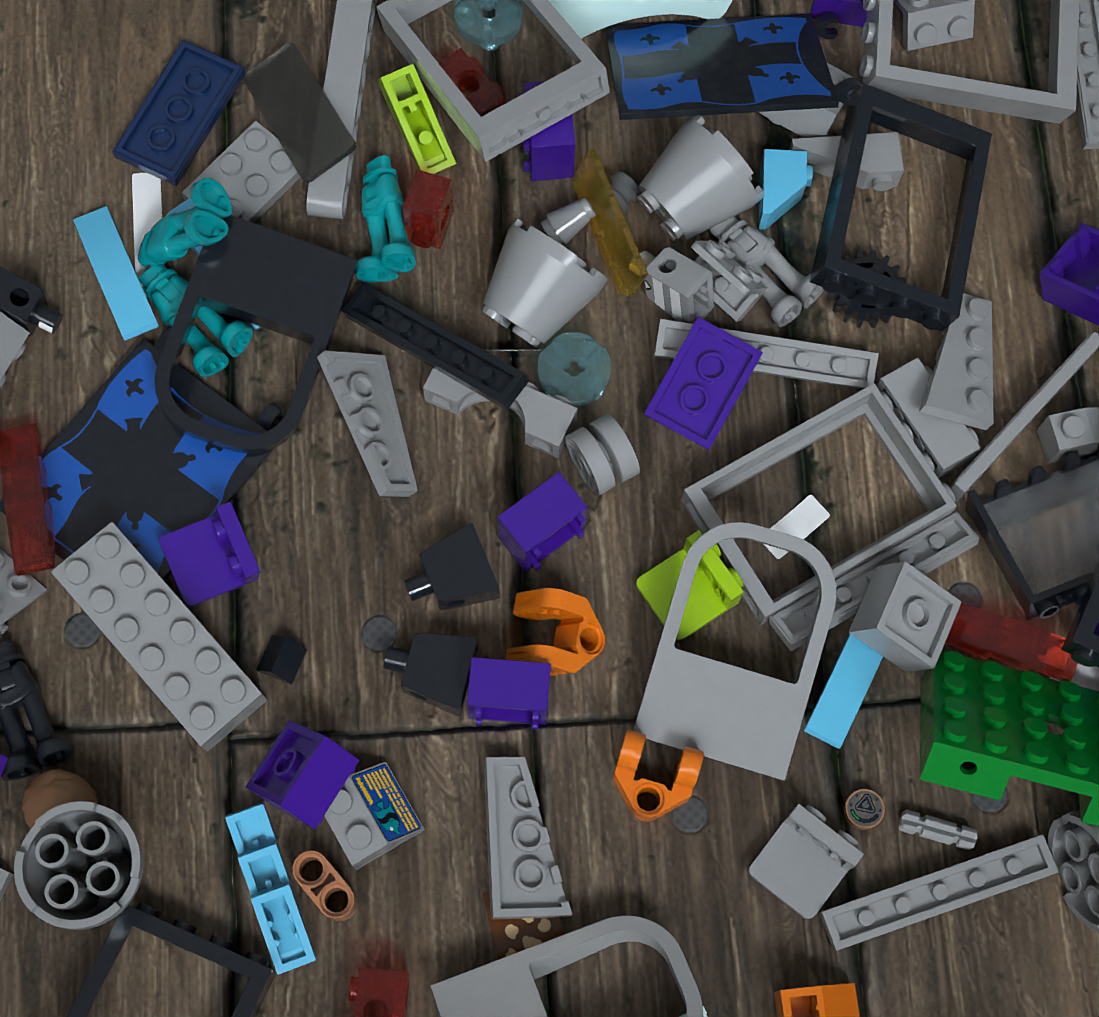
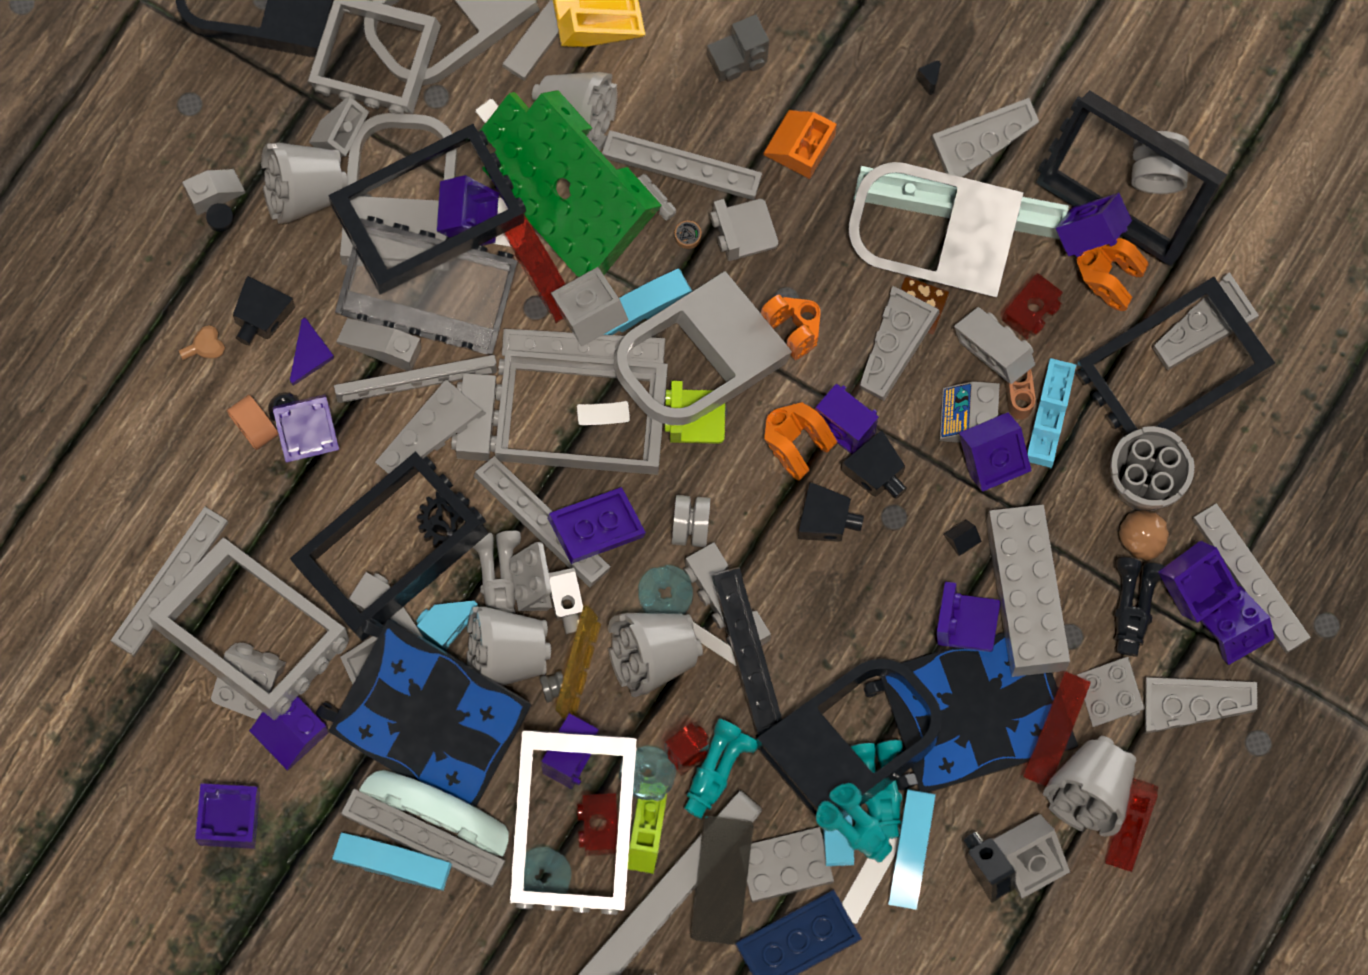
camera: 145 degrees left, 0 degrees up
(372, 415) = (811, 646): light grey wing -> none
(389, 916) = (995, 345): none -> light grey brick
(457, 148) = (661, 767): none -> clear light blue plate
(542, 522) = (757, 503): dark purple container -> none
(568, 220) = (600, 688): light grey cone -> none

